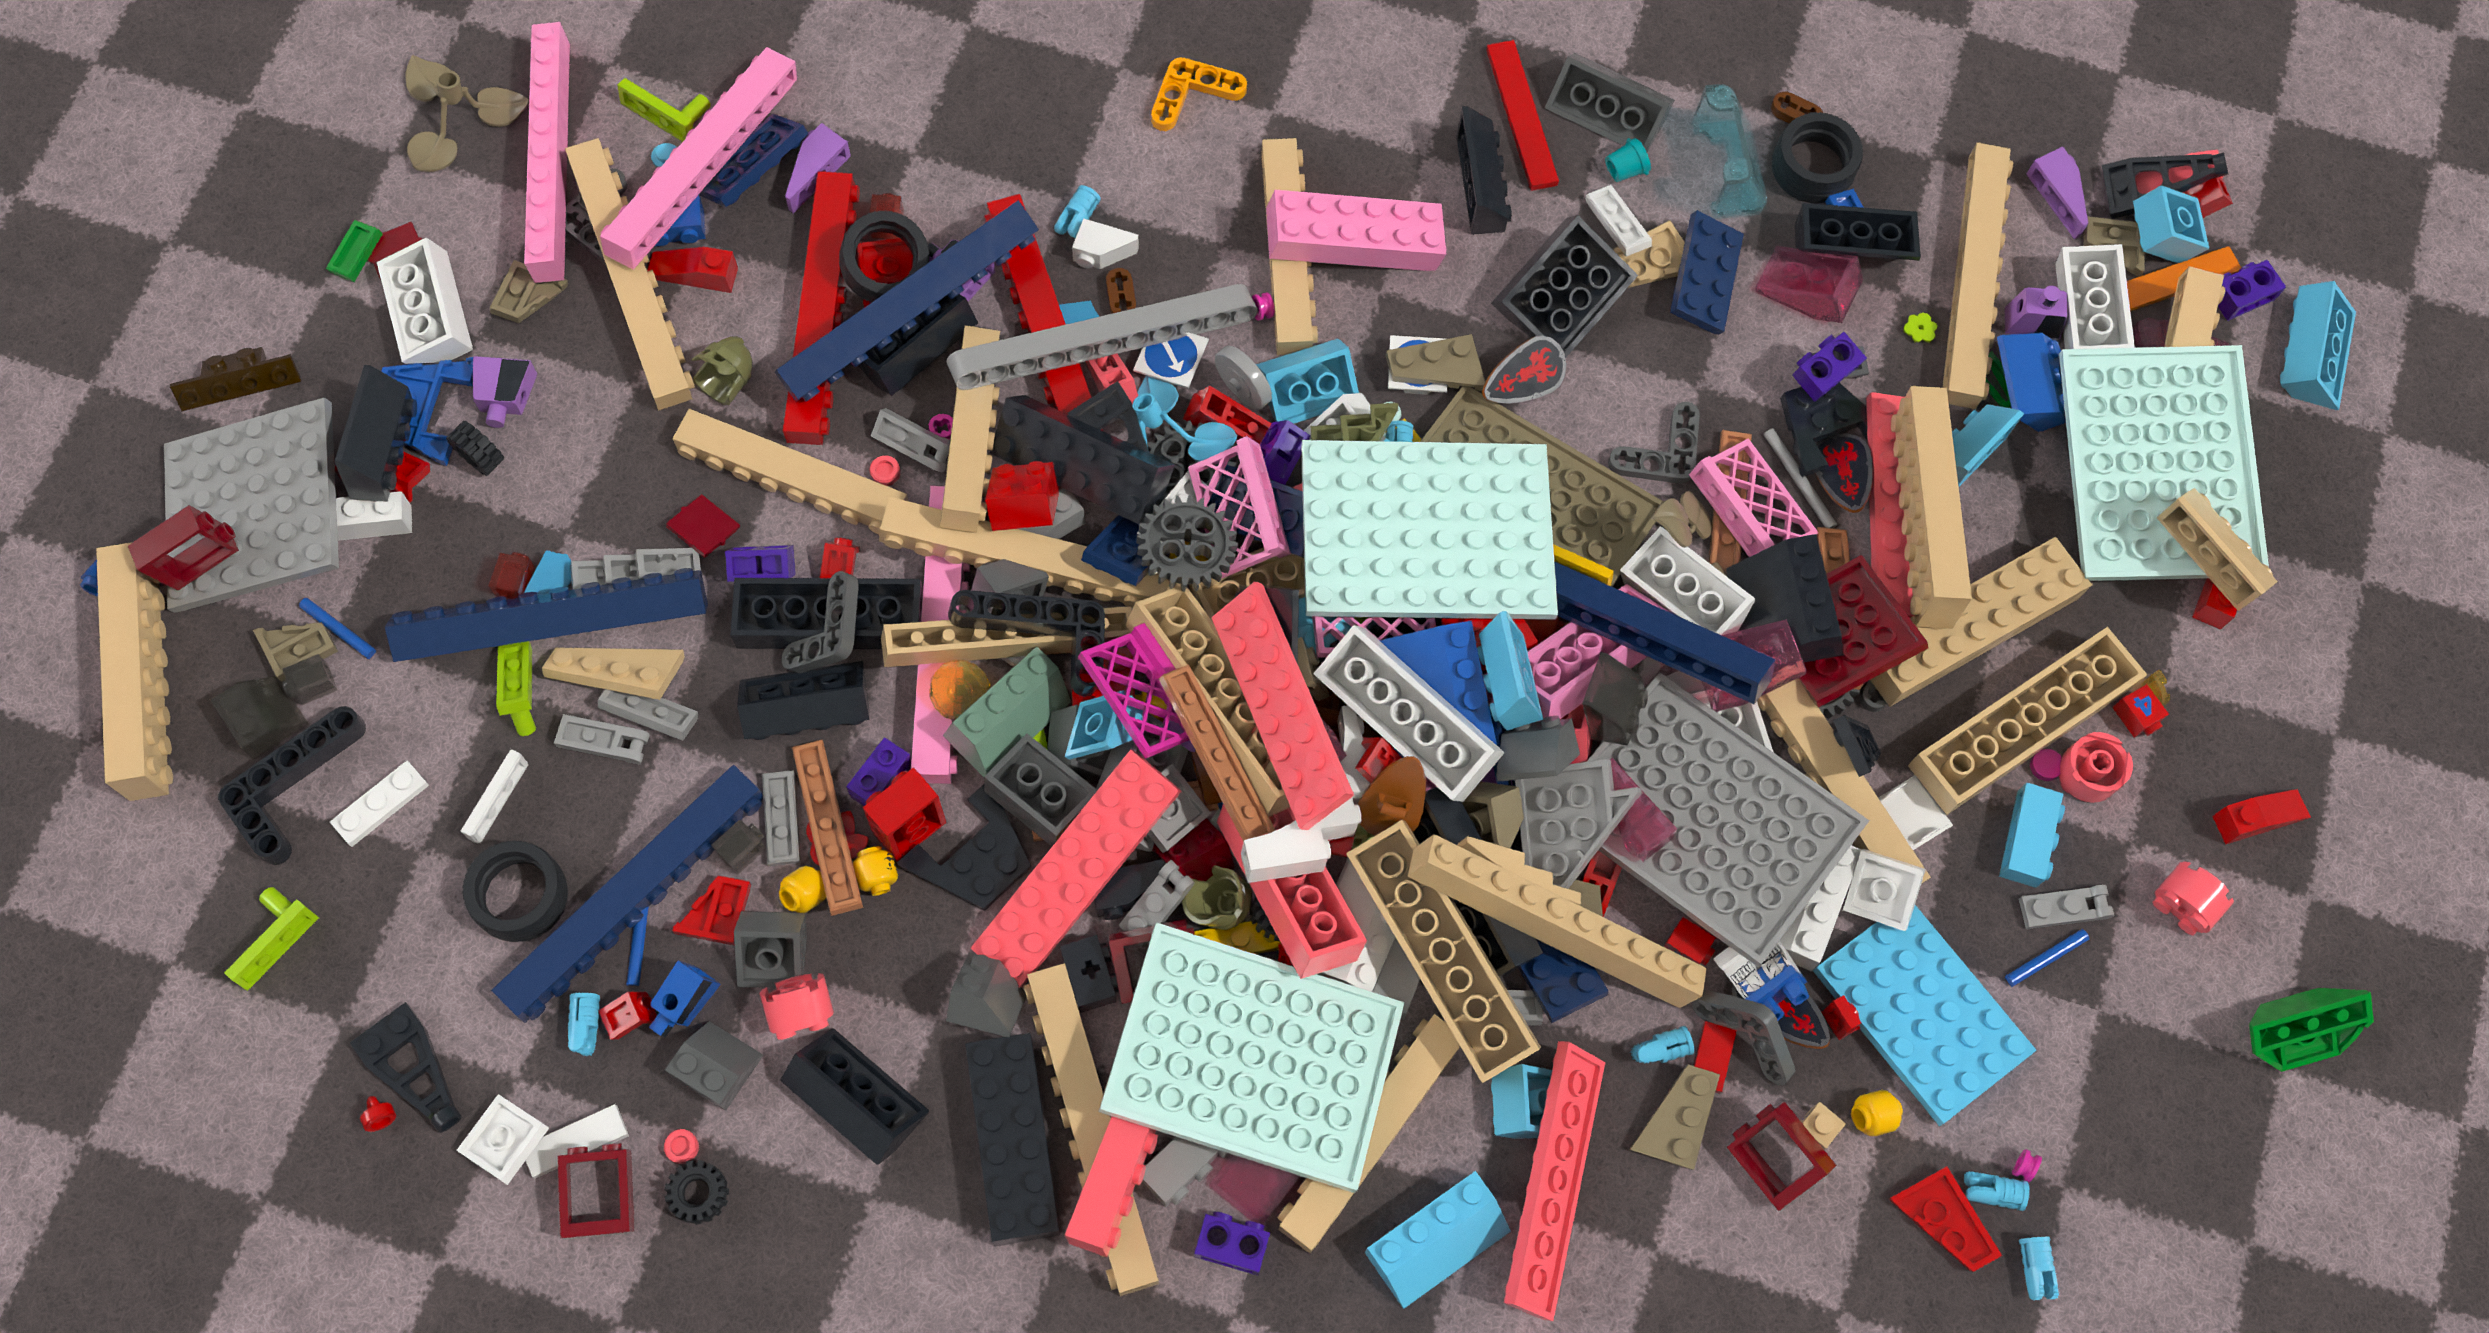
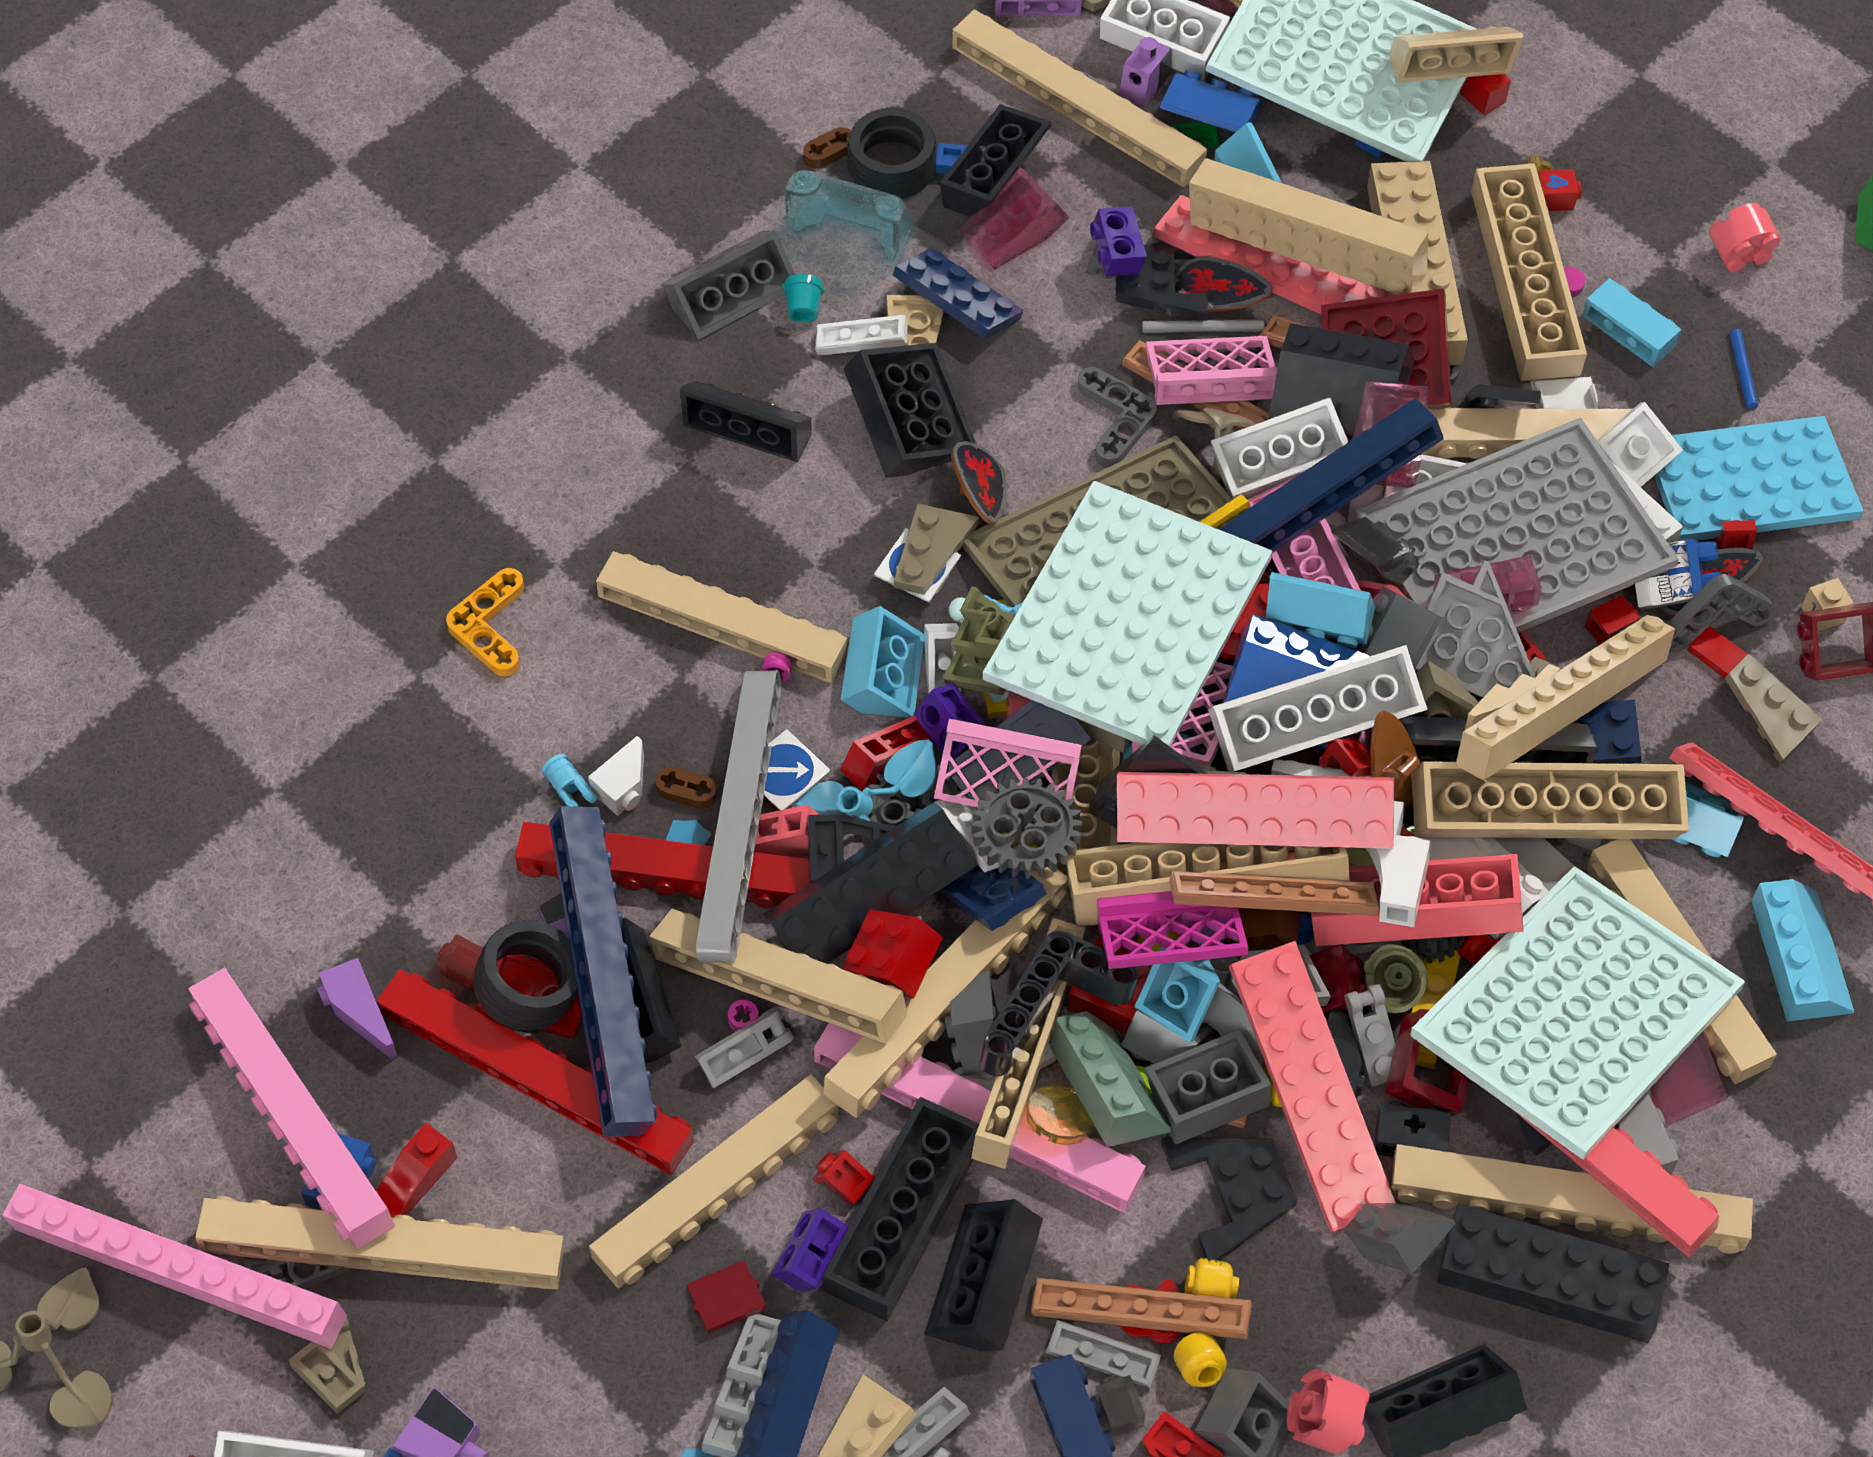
camera: 60 degrees left, 10 degrees down
(660, 113) = (216, 1123): lime piece -> none
(661, 153) = (249, 1153): medium azure plate -> none
(725, 369) = (560, 1195): olive helmet -> none
(753, 158) = (316, 1052): dark blue plate -> none
(838, 636) = (947, 1207): dark grey beam -> none
(878, 771) = (1109, 1235): dark purple brick -> none
(885, 470) = (760, 1092): coral tile -> none
(904, 813) = (1175, 1217): red brick -> none
(1229, 1252) = (1740, 1127): dark purple brick -> none
(1243, 377) = (854, 713): light grey wheel -> none
(1355, 230) = (750, 546): bright pink brick -> none
(1522, 115) = (695, 360): red tile -> none
(1656, 1049) = (1699, 687): medium azure hinge -> none
(1877, 1113) = (1831, 556): yellow head -> none
(1921, 321) = (1104, 165): lime plant -> none
(2065, 907) = (1705, 333): light grey plate -> none
(2095, 767) = (1594, 245): coral brick -> none
(2260, 815) = (1689, 160): red slope -> none

